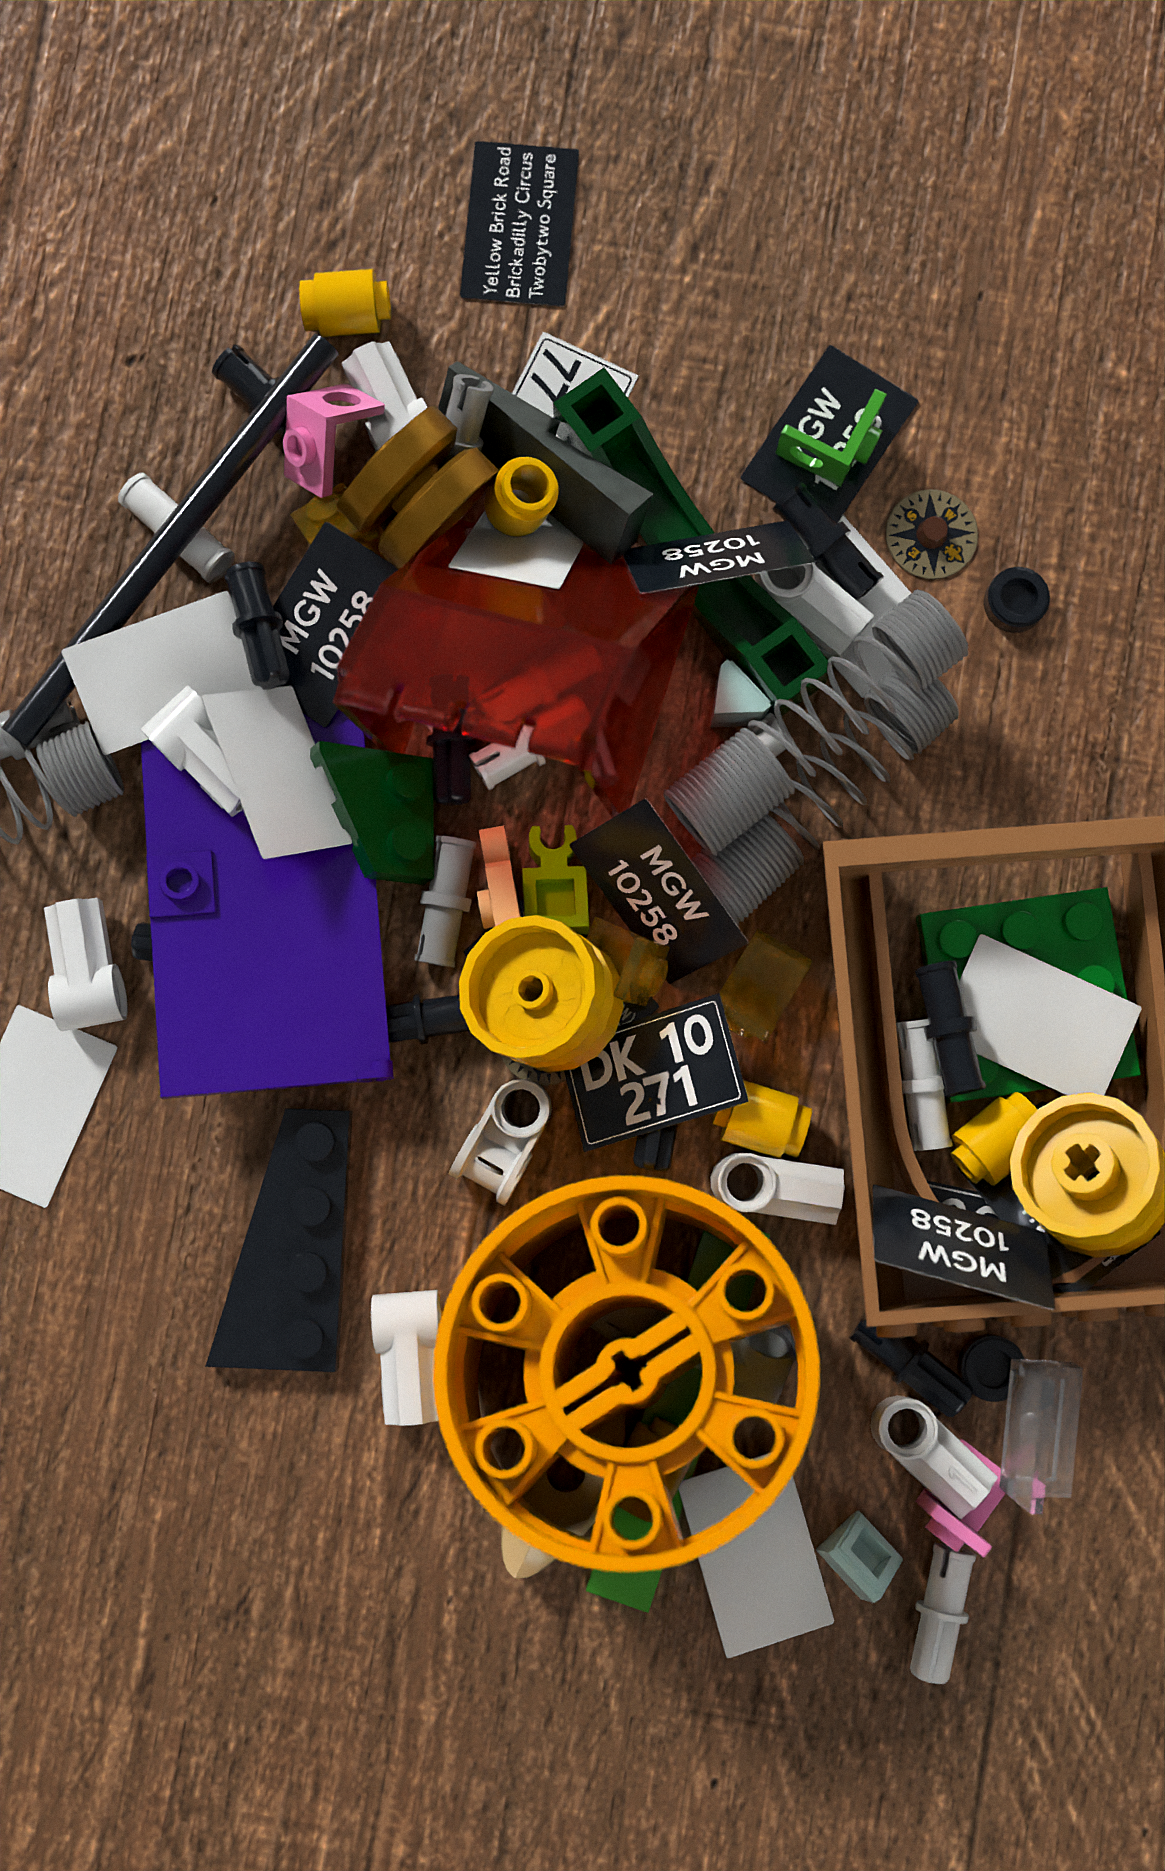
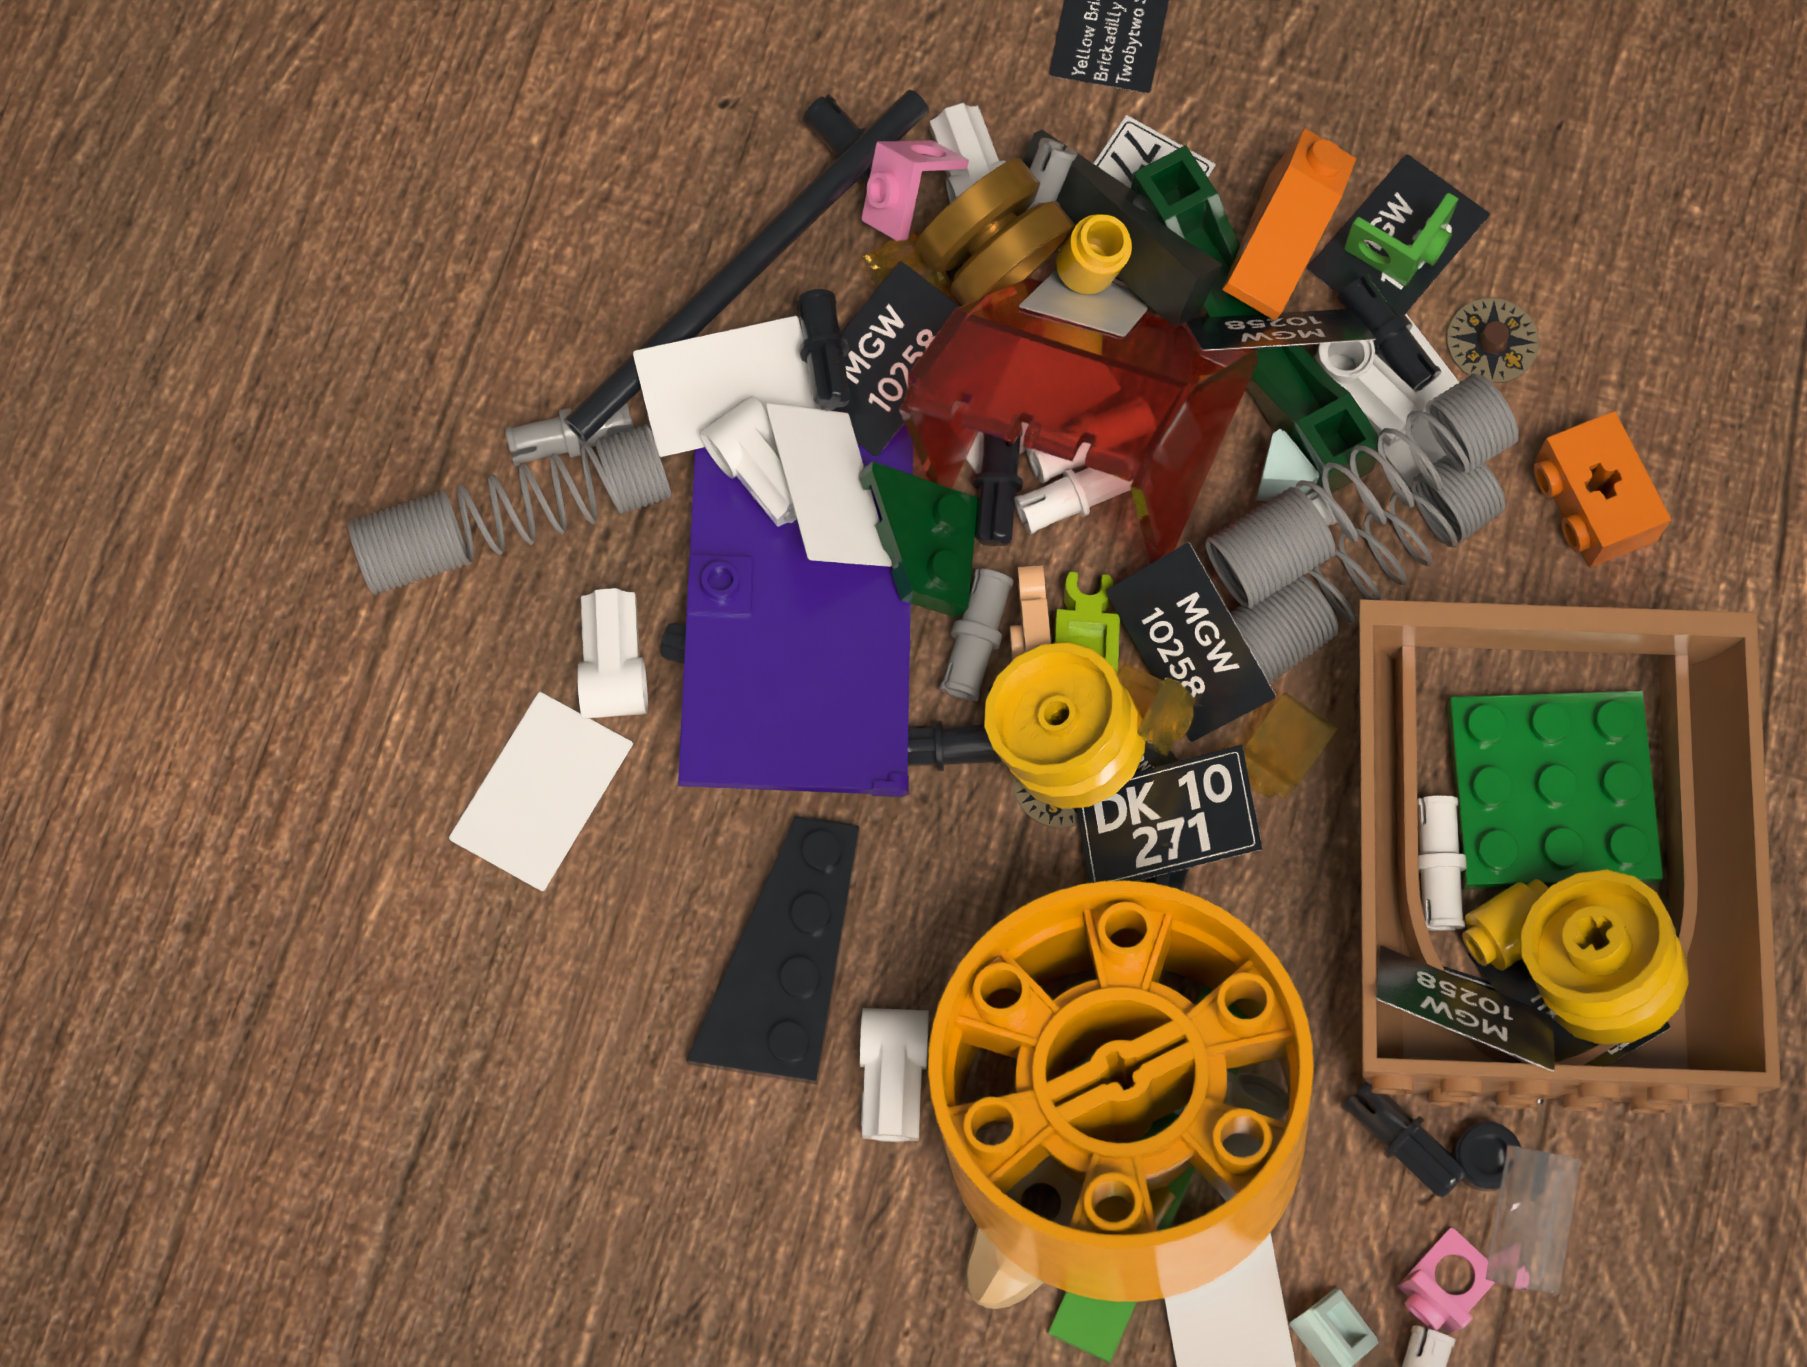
camera: 10 degrees right, 10 degrees down
(155, 506) = (730, 236): white pin -> none
(344, 303) = (938, 67): yellow brick -> none
(502, 1143) = (1007, 869): white piece -> none
(716, 438) = (1288, 222): none -> orange slope
(767, 1123) = (1275, 880): yellow brick -> none
(784, 1188) = (1305, 950): white piece -> none
(935, 1457) = (1422, 1235): white piece -> none
(950, 1028) = (1471, 805): black pin -> none
(1016, 599) = (1571, 404): black tile -> none
(1044, 1019) = (1560, 807): white sticker -> none
(1047, 652) = (1606, 461): none -> orange brick

